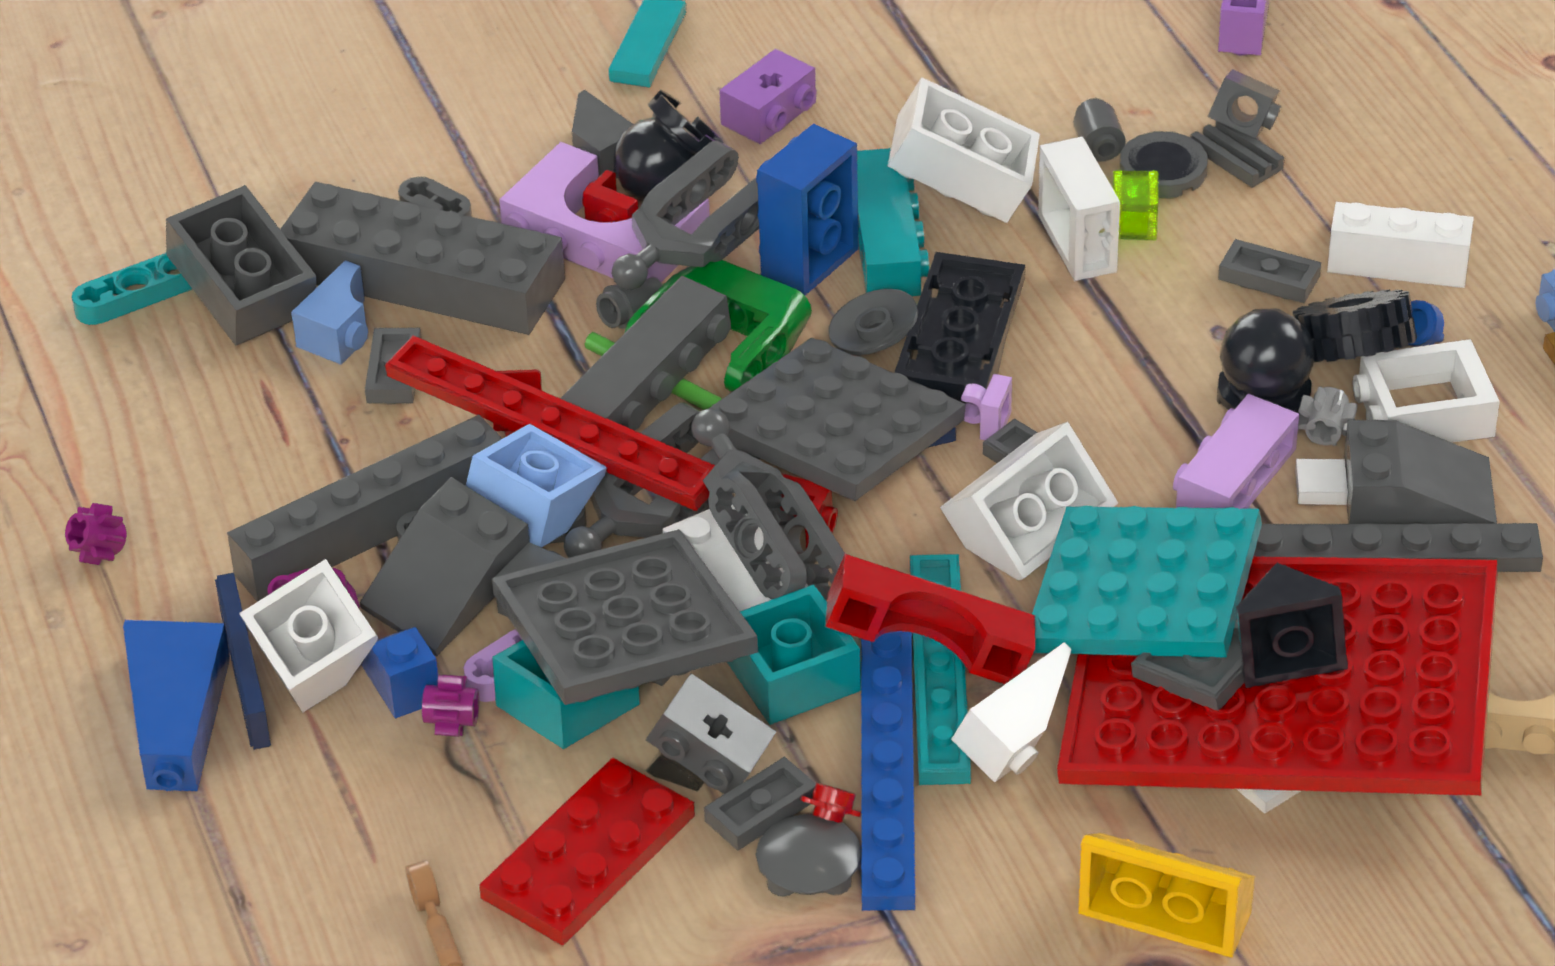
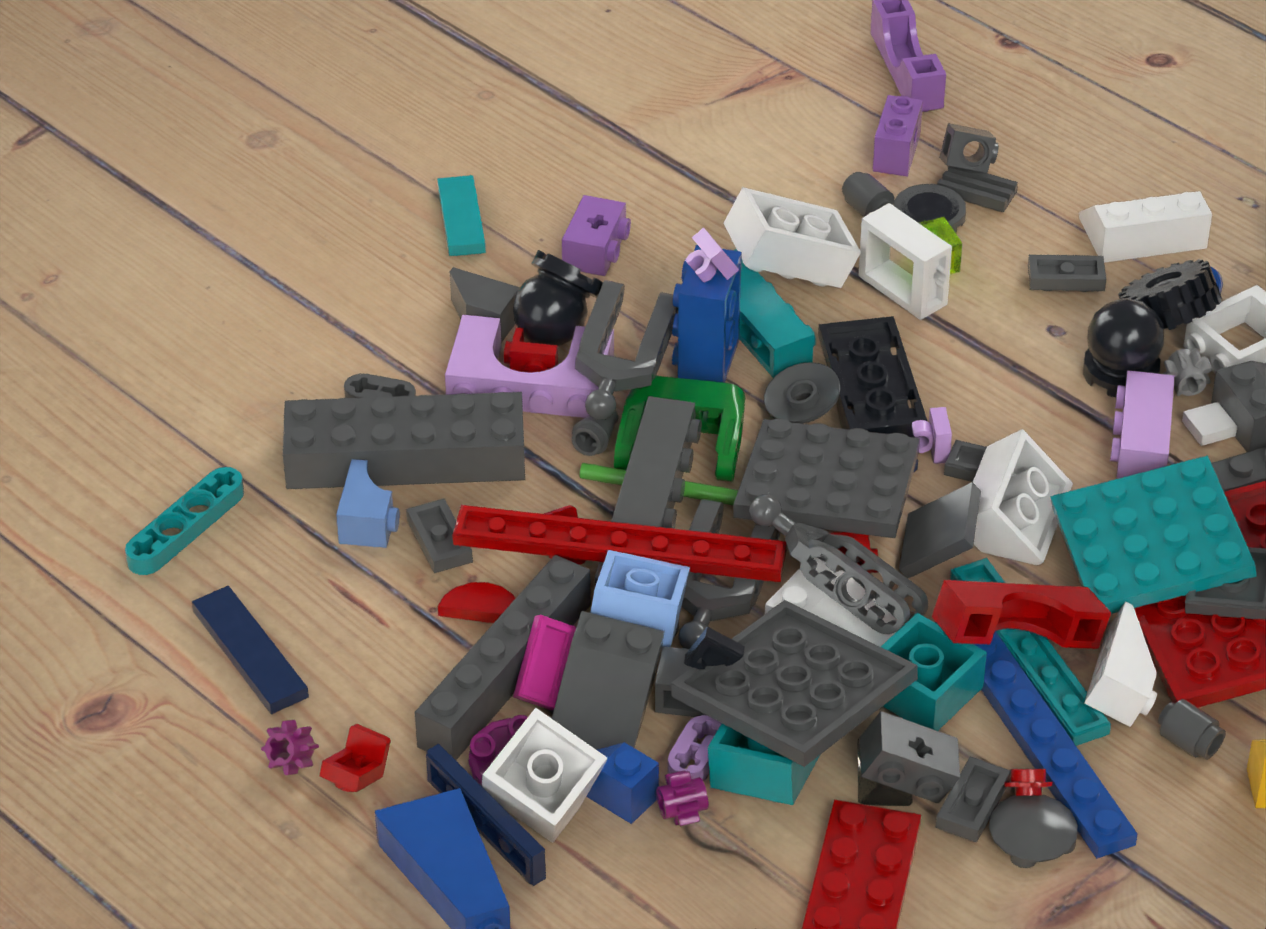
camera: 25 degrees left, 0 degrees up
(132, 427) = (250, 649): none -> dark blue tile
(153, 572) = (360, 761): none -> red bracket
(239, 264) = (266, 487): dark grey brick -> none
(380, 440) = (475, 602): none -> red tile
(393, 518) = (544, 662): none -> dark pink tile
(549, 555) = (713, 650): none -> black tile
(808, 138) = (710, 257): none -> lavender tile
(917, 508) = (940, 530): none -> dark grey tile
(1053, 804) = (1191, 729): none -> dark grey brick
(1177, 71) = (897, 135): none -> medium lavender brick

